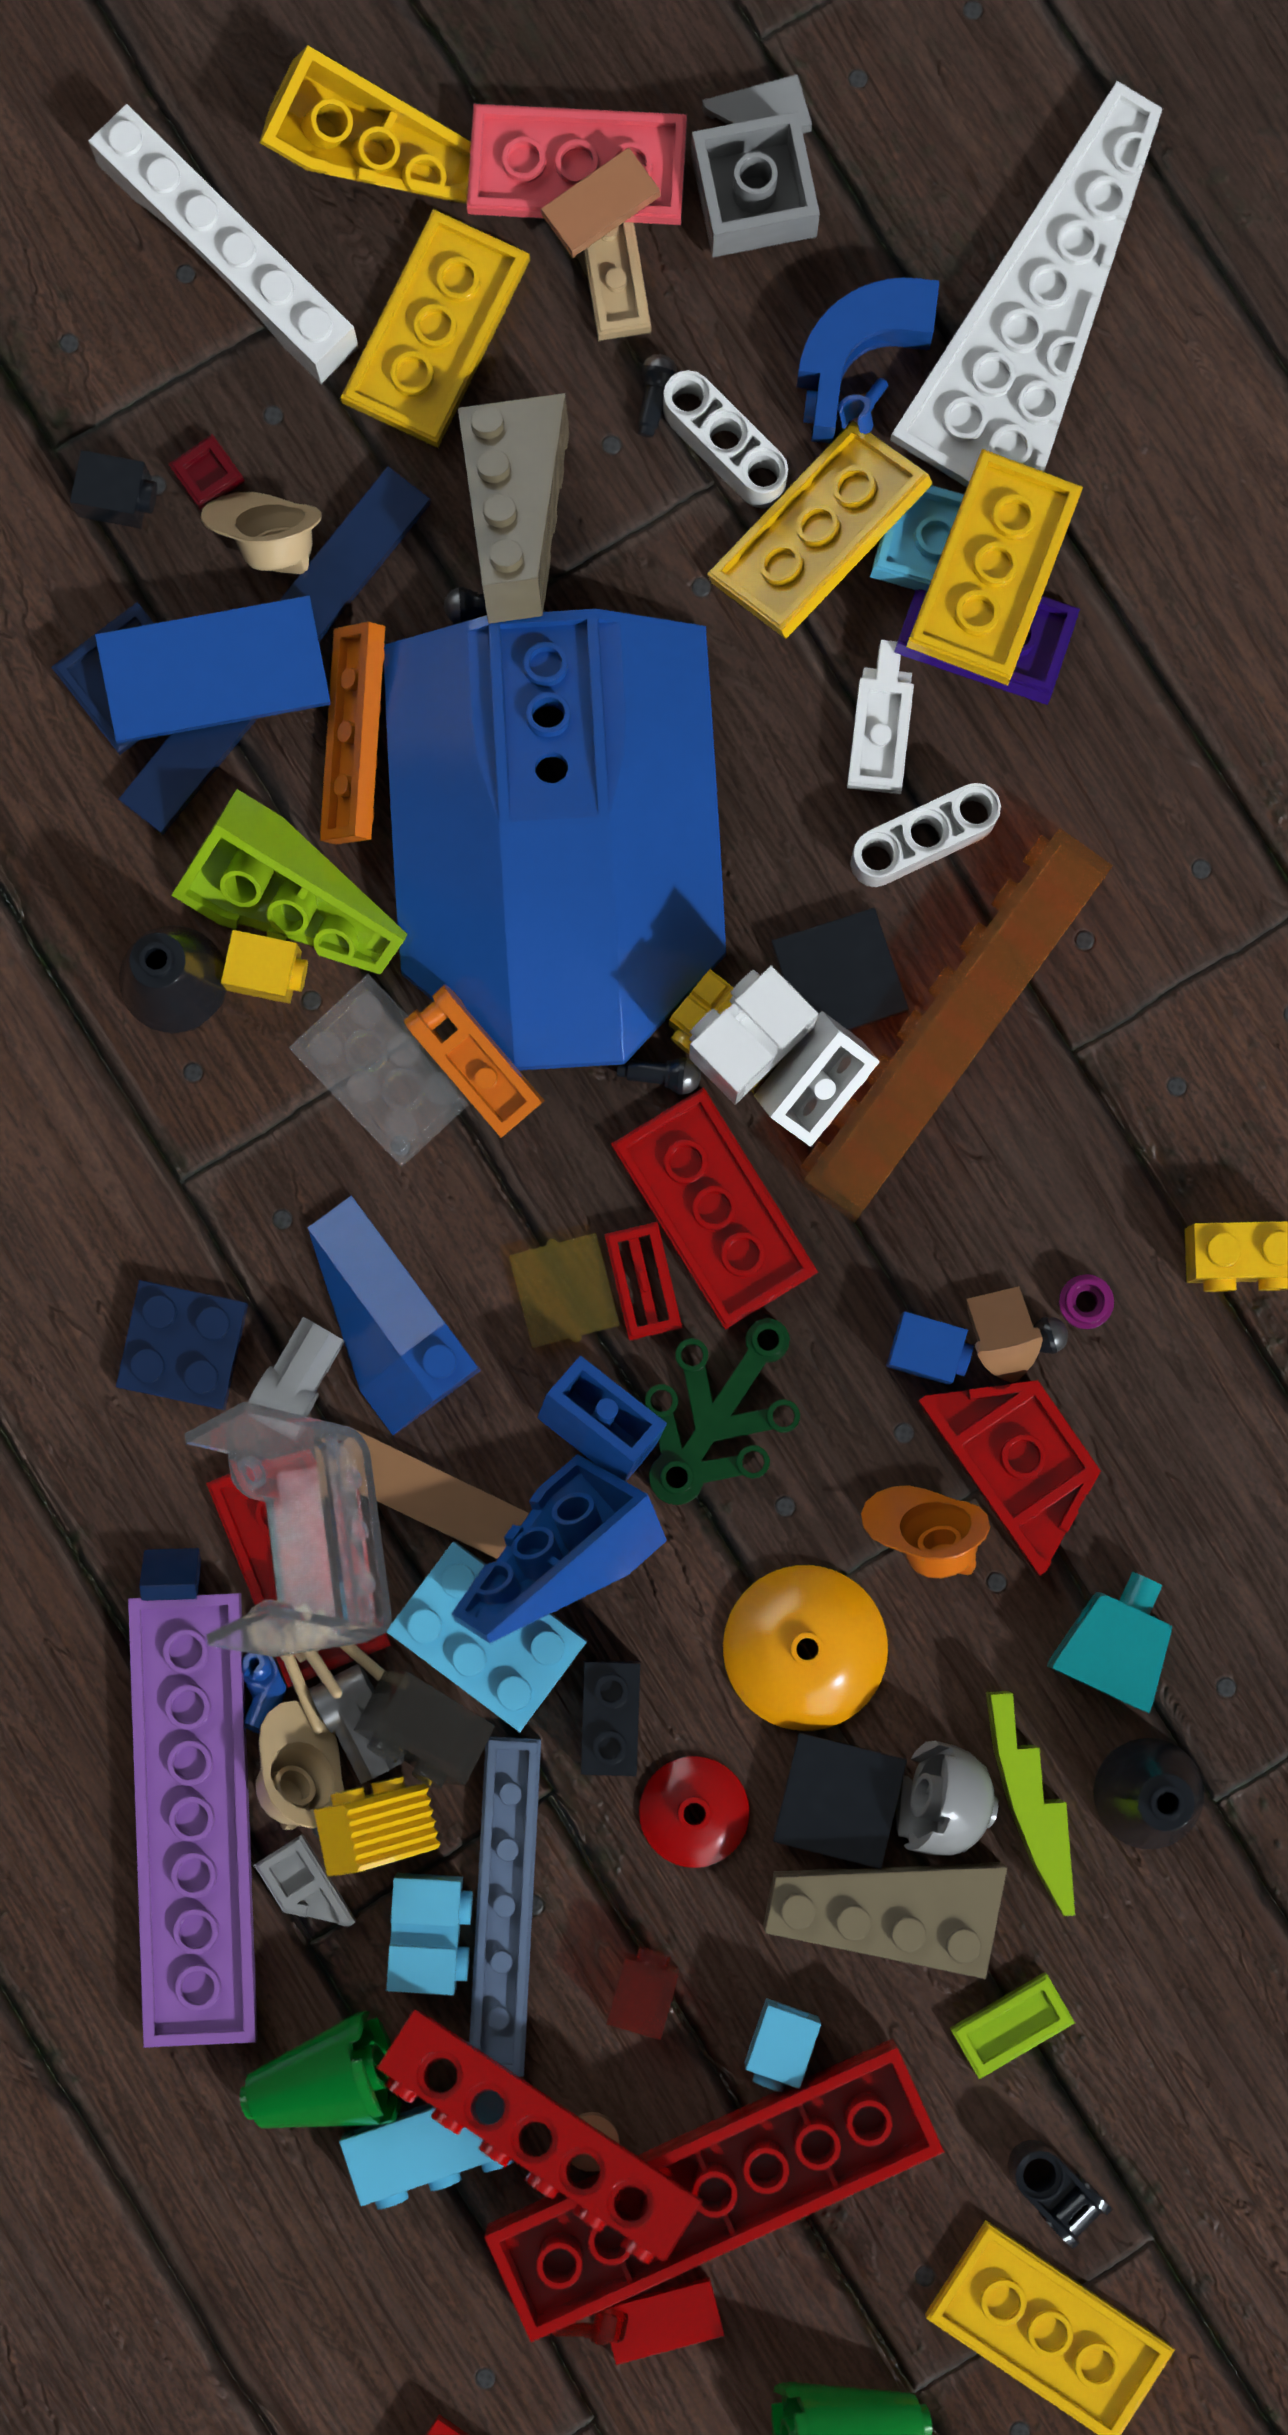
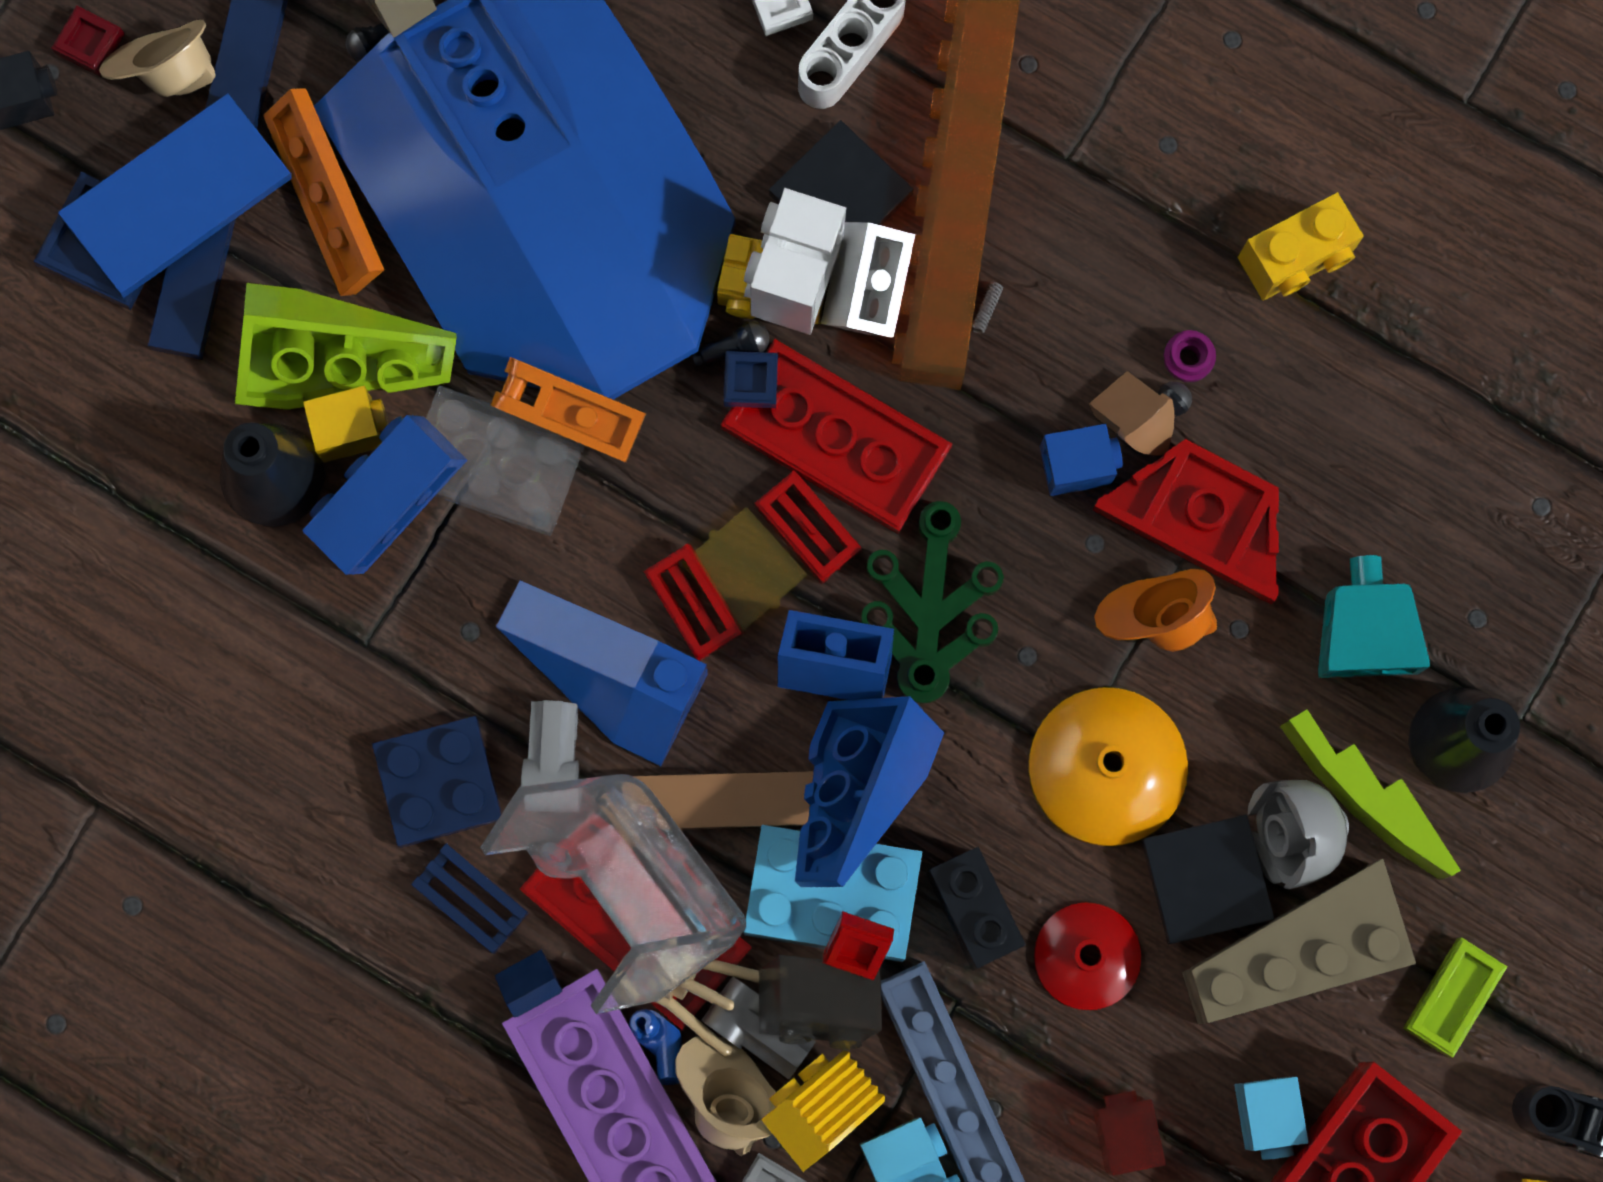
camera: 30 degrees left, 5 degrees down
(137, 1476) = (435, 869): none -> dark blue tile
(263, 1053) = (383, 493): none -> blue brick
(481, 1699) = (858, 945): none -> red tile
(521, 1298) = (717, 639): none -> red tile
(659, 1116) = (750, 379): none -> dark blue tile
(926, 1156) = (986, 306): none -> light grey leg

